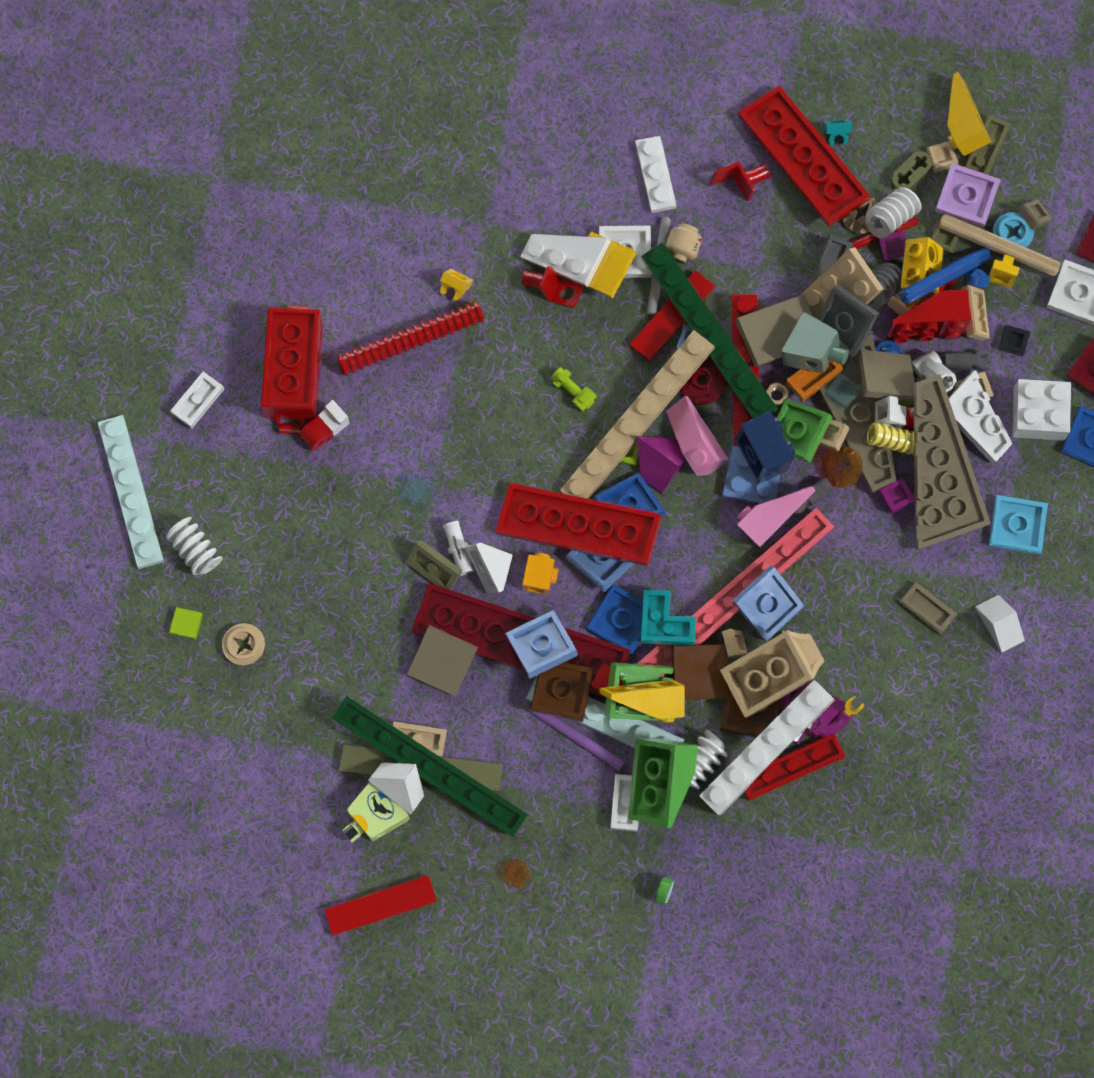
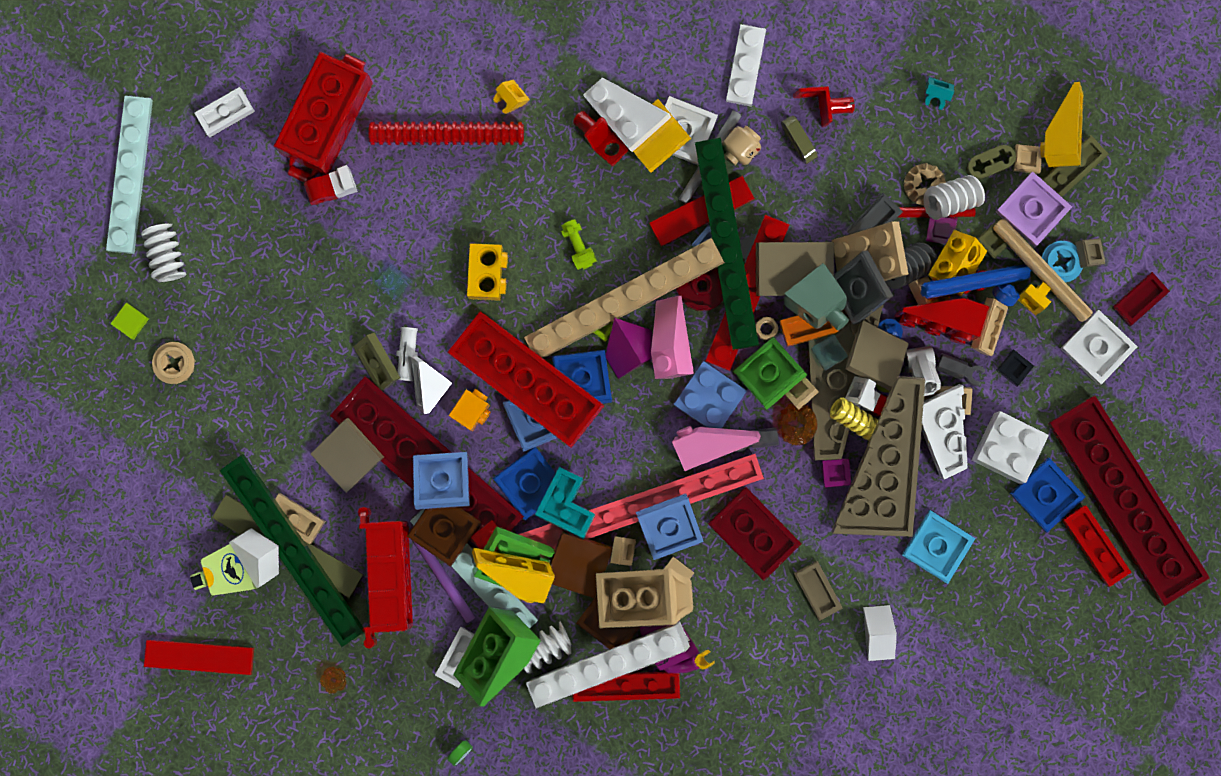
camera: 25 degrees right, 10 degrees up
(496, 447) = (479, 272): none -> yellow brick
(526, 753) = (387, 576): none -> red container
(732, 218) = (799, 139): none -> olive beam
(765, 447) = (729, 380): dark blue brick -> none
(804, 156) = (894, 105): red plate -> none
(847, 581) = (754, 533): none -> dark red tile

